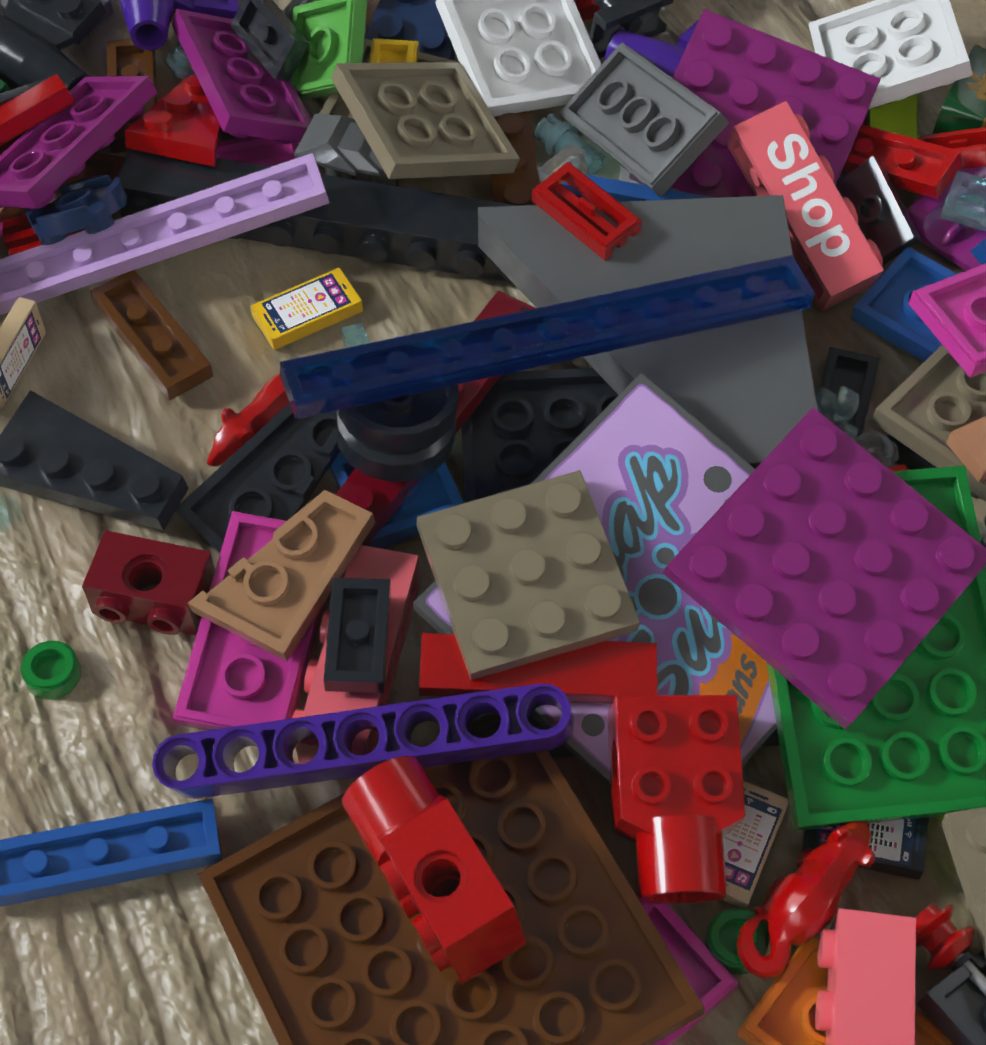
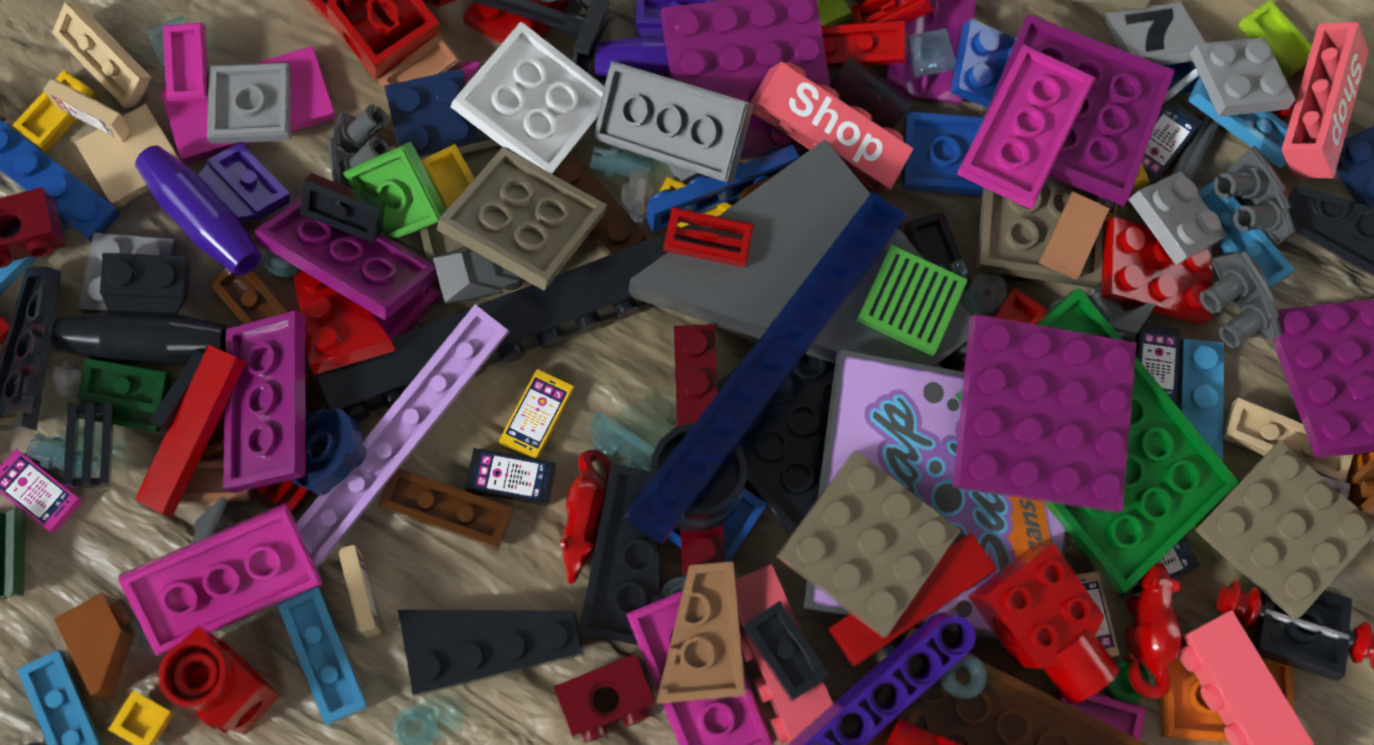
camera: 40 degrees left, 15 degrees up
(235, 345) = (510, 477): none -> tile
(531, 761) = (976, 683): none -> clear light blue plate
(762, 383) = (912, 300): none -> bright green tile

